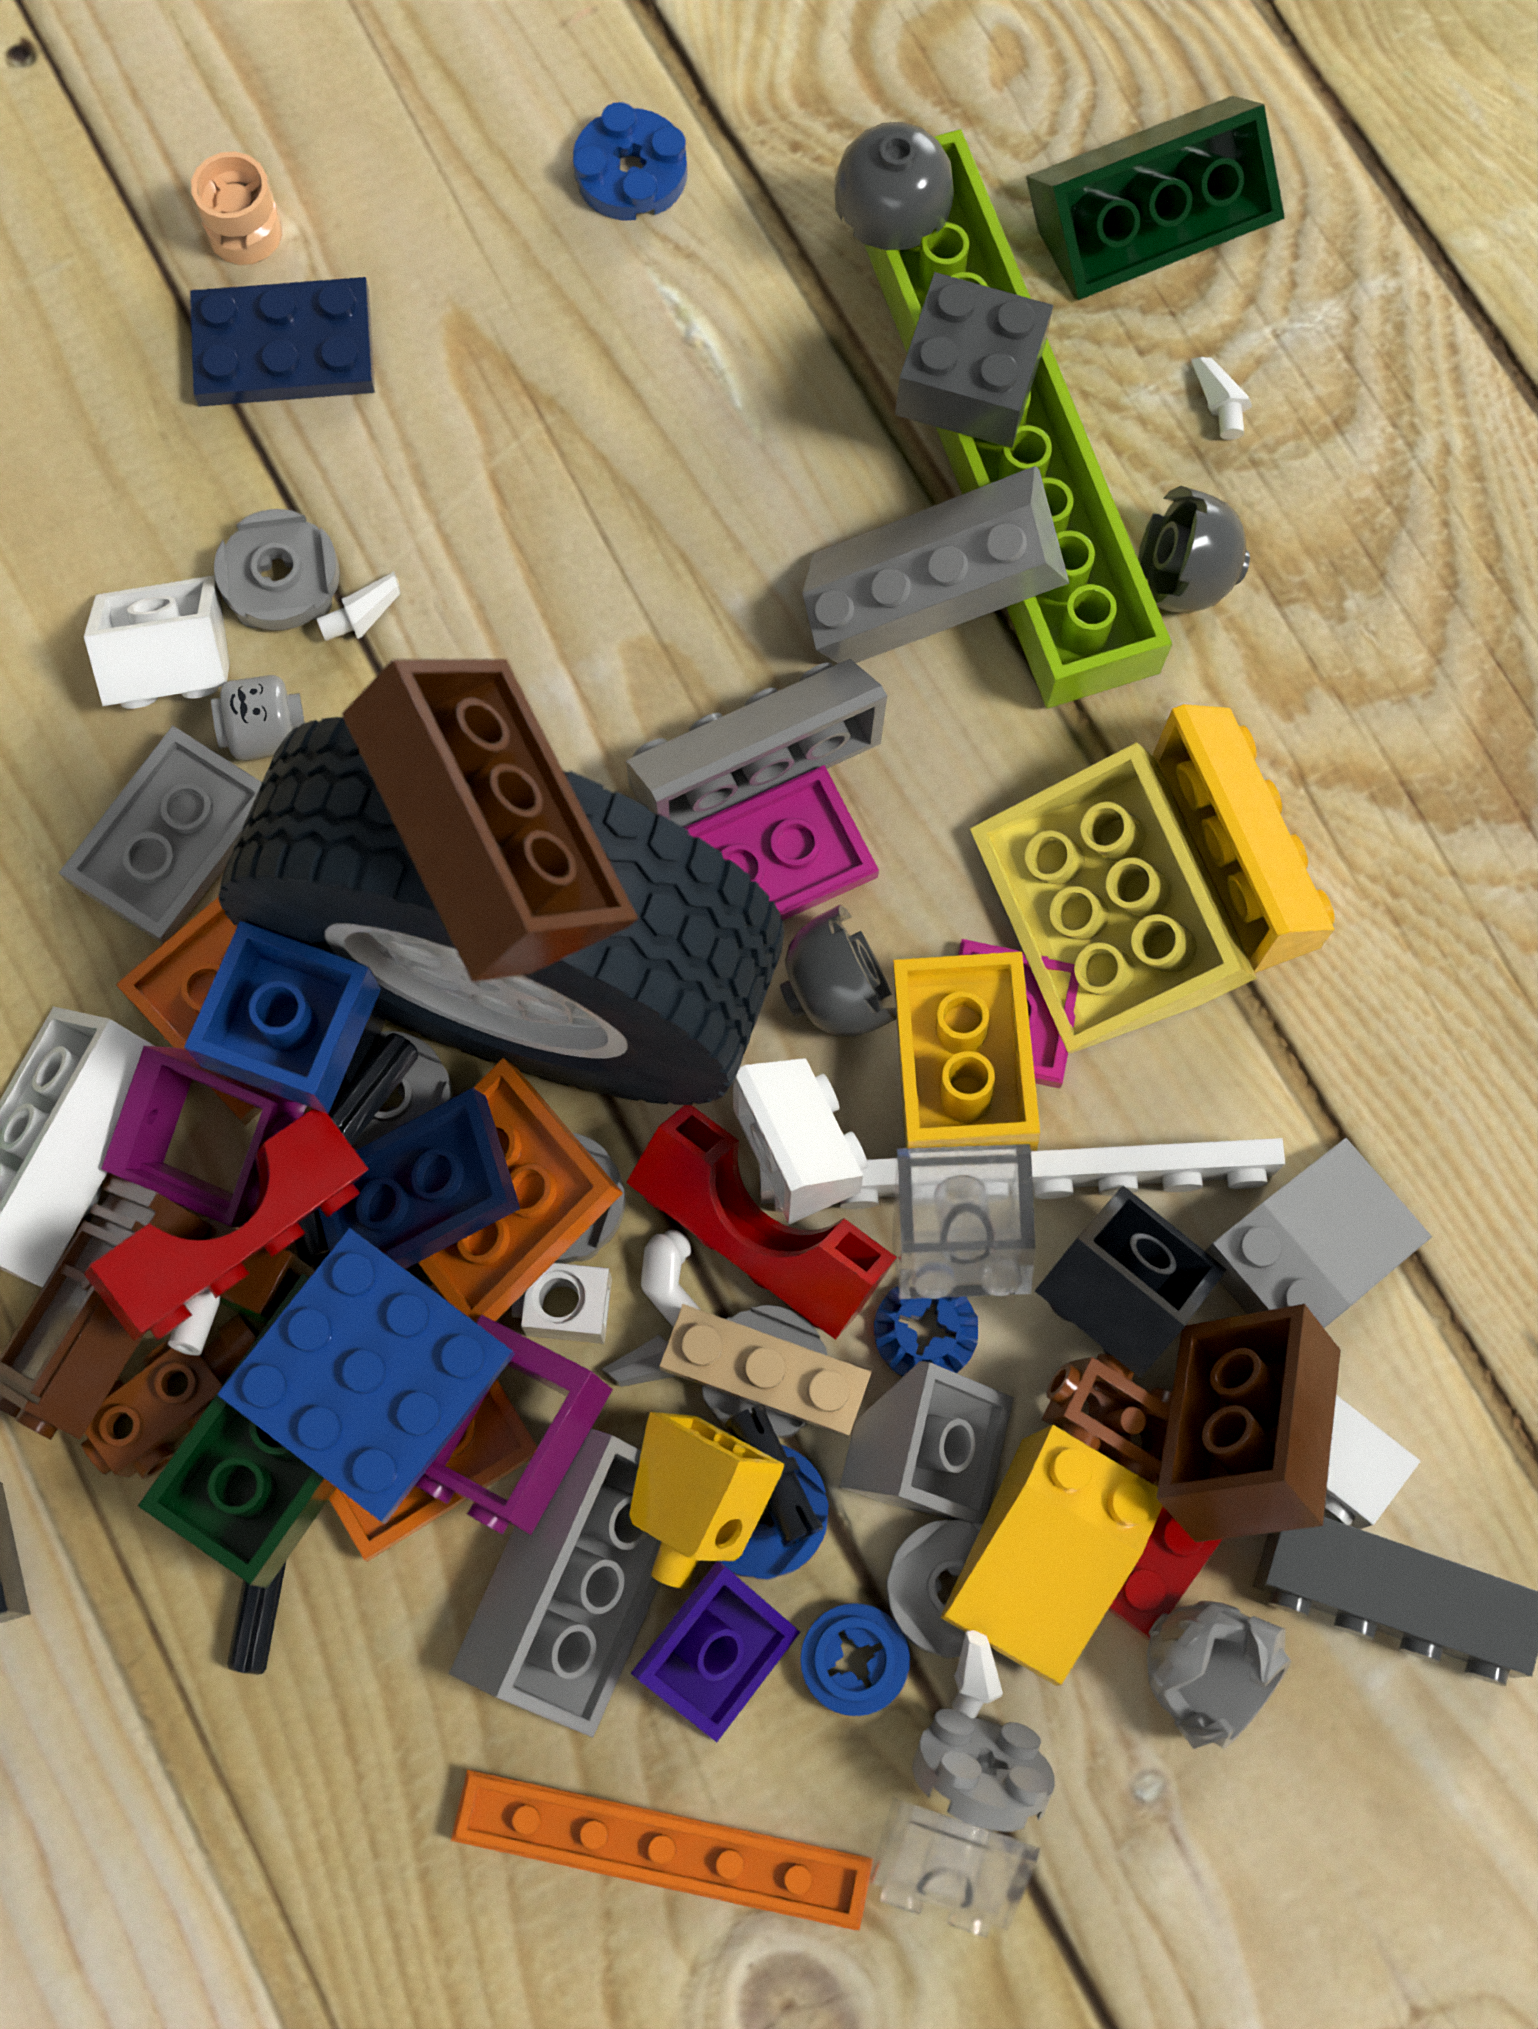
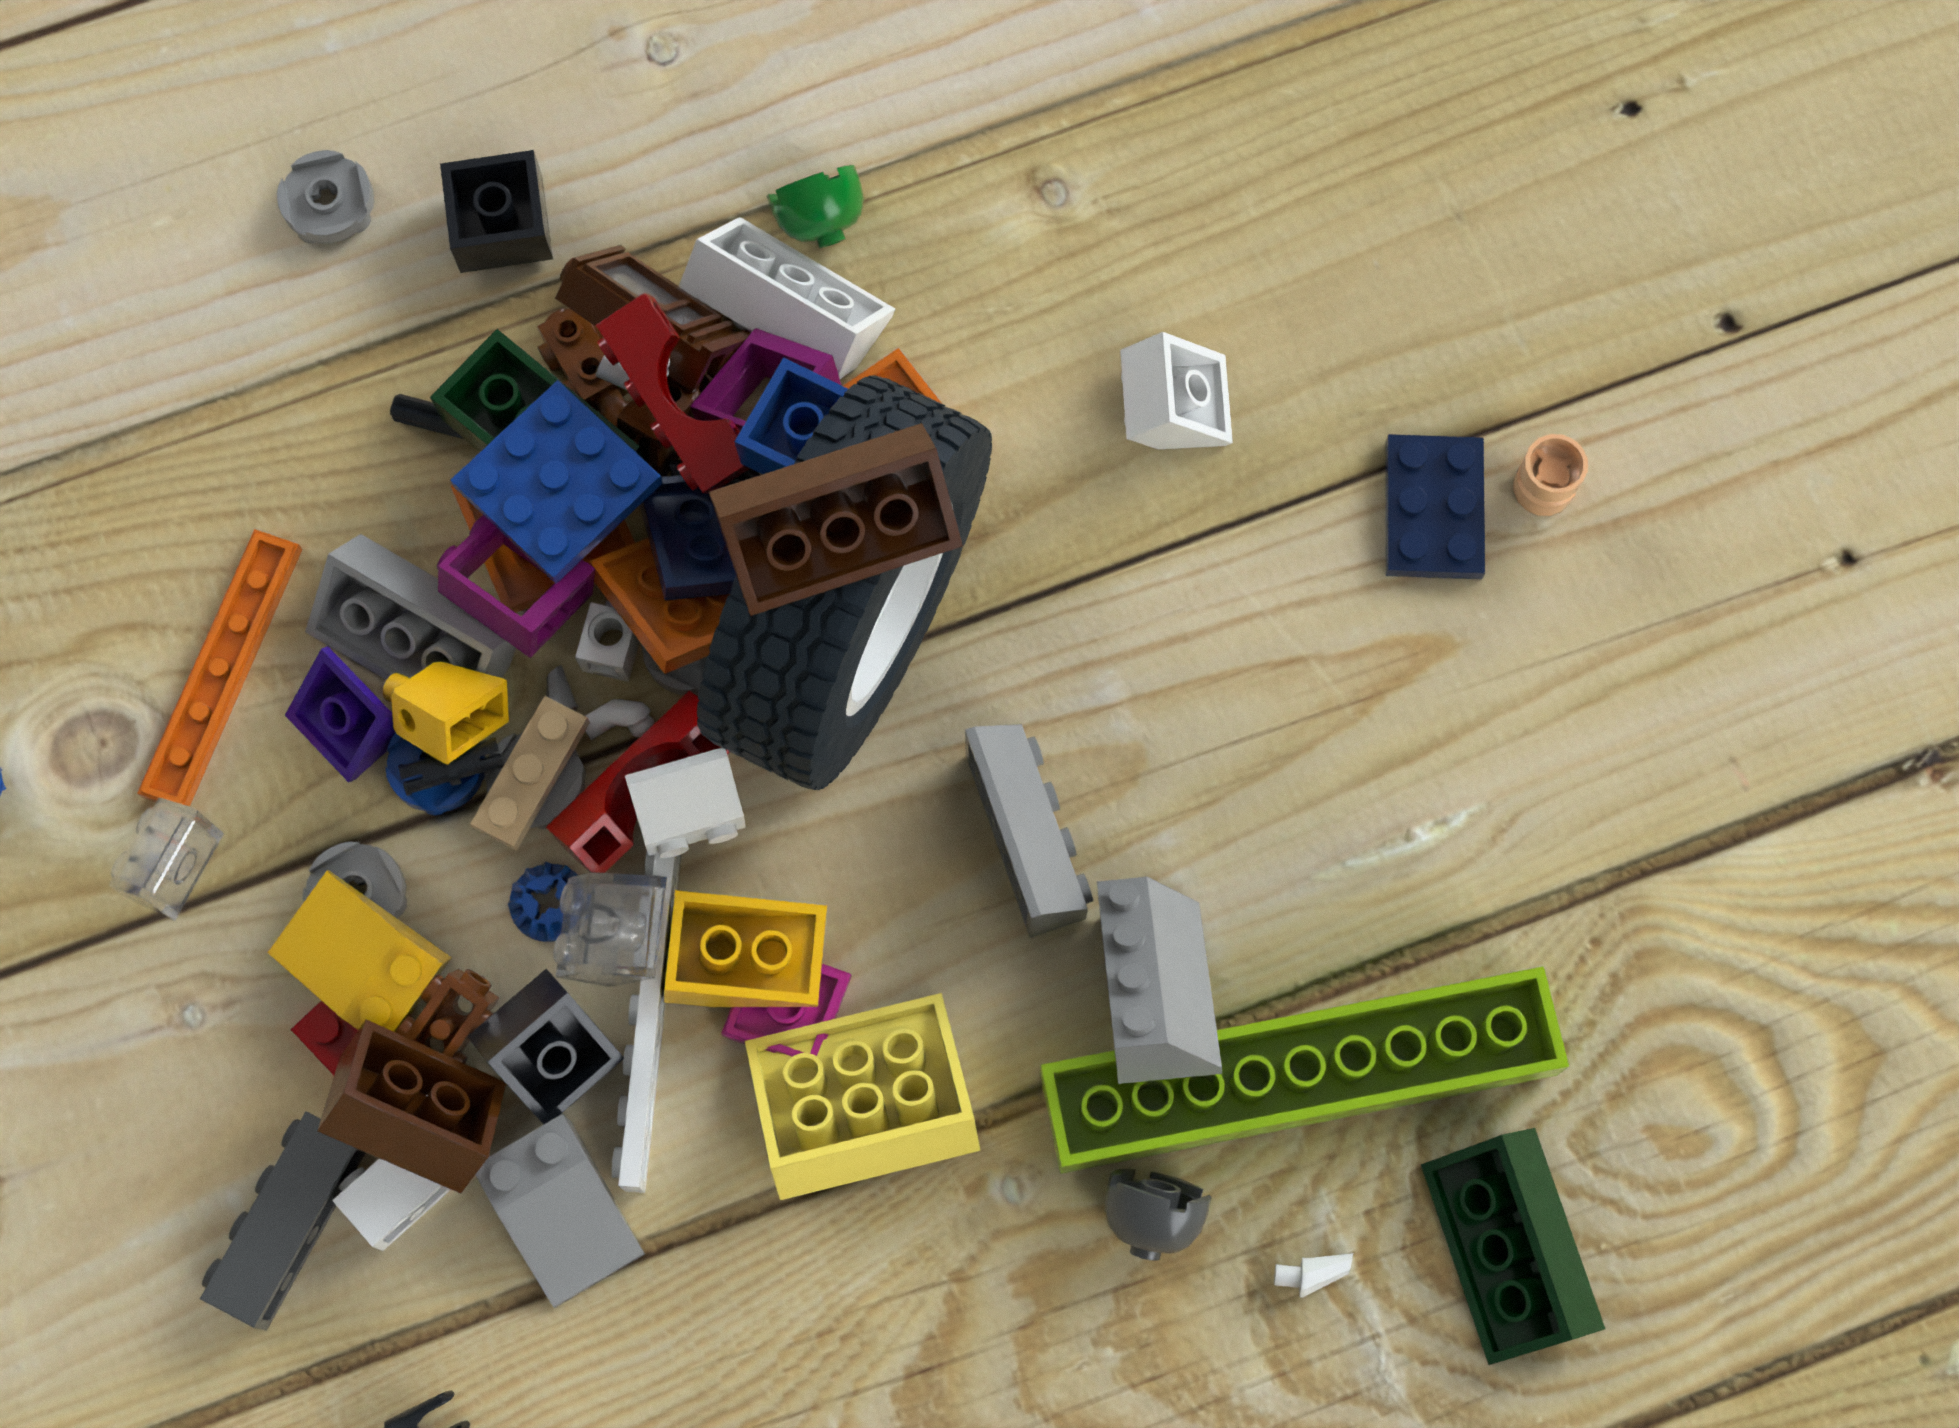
camera: 100 degrees right, 0 degrees up
(165, 836) = (1015, 393): light grey plate -> none
(255, 716) = (1098, 460): light grey head -> none
(285, 602) = (1247, 468): light grey plate -> none
(361, 608) = (1189, 547): white bar -> none
(626, 133) = (1589, 826): blue plate -> none
(793, 842) = (940, 834): dark pink tile -> none
(835, 978) = (827, 867): dark grey cylinder -> none
(886, 1669) = (299, 807): blue gear -> none
(894, 186) = (1505, 994): dark grey cylinder -> none
(930, 1445) = (454, 888): light grey slope -> none
(973, 359) = (1326, 1032): dark grey brick -> none
(976, 1675) = (286, 895): white bar -> none
(985, 1770) = (242, 890): light grey plate -> none
(1214, 1669) = (253, 1064): light grey helmet -> none
(1242, 835) = (897, 1208): yellow slope -> none

